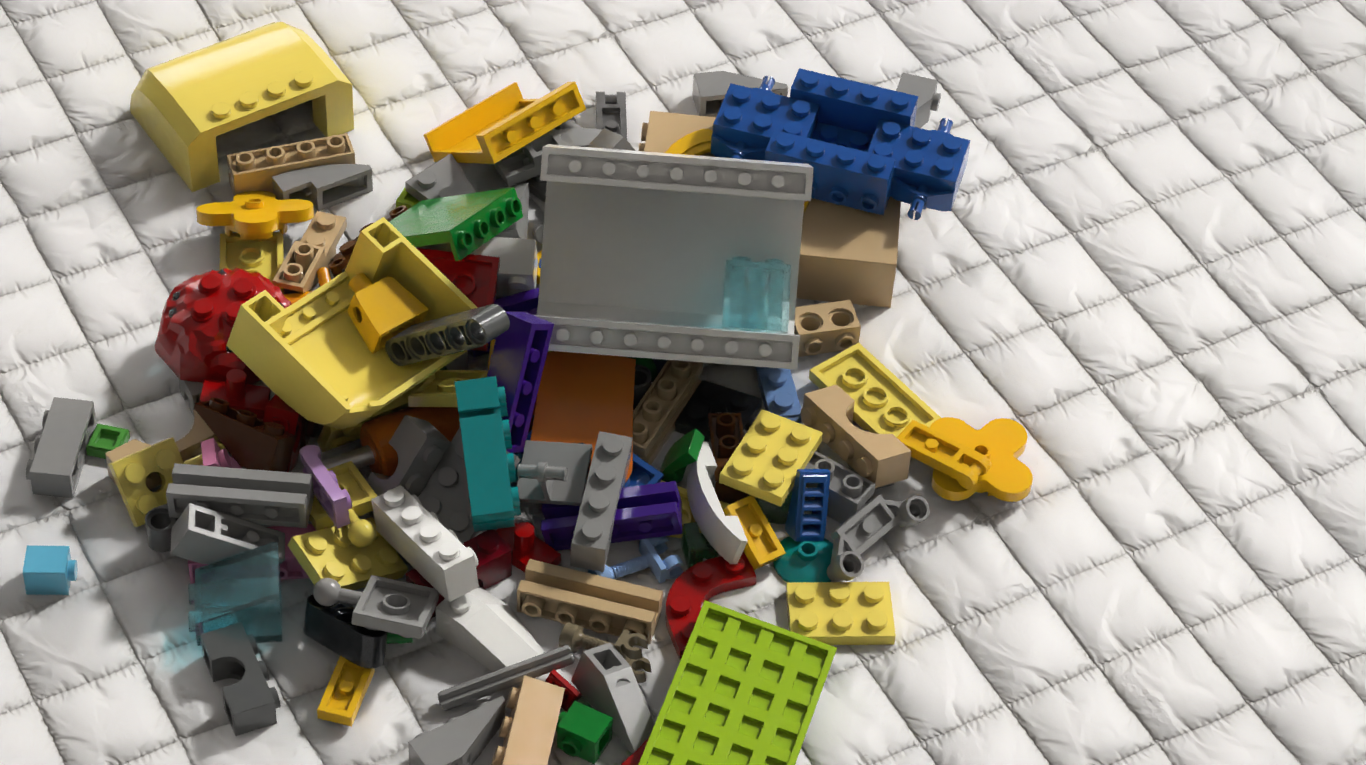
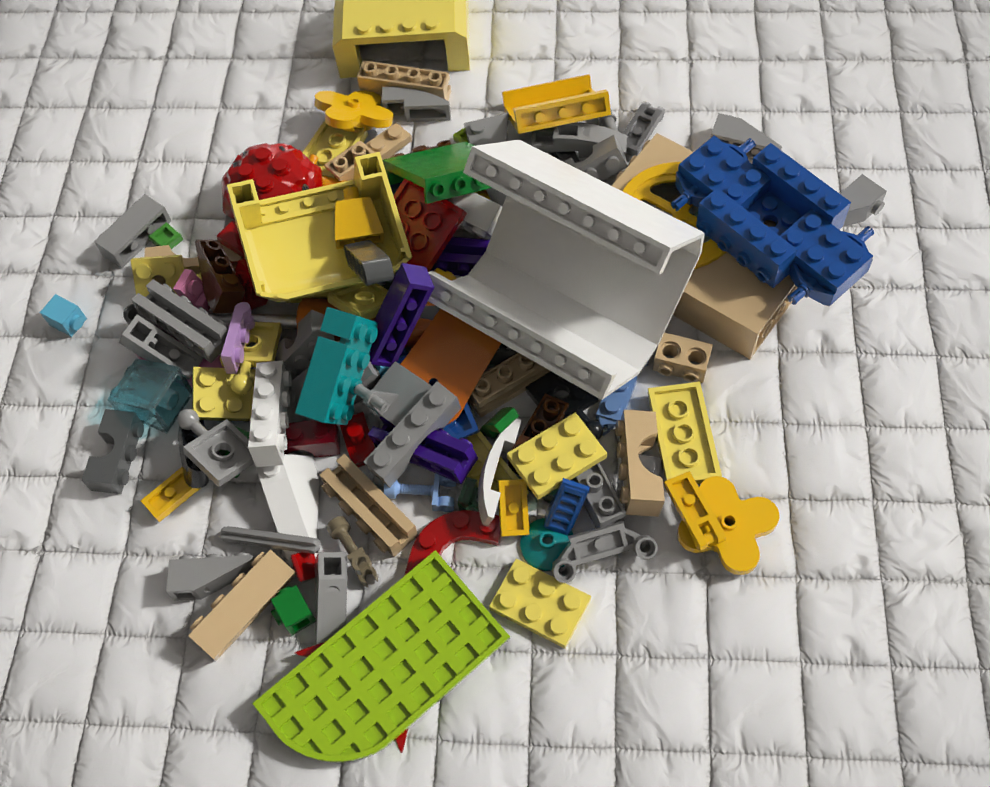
camera: 40 degrees right, 15 degrees up
(756, 295) = (623, 321): clear light blue slope -> none

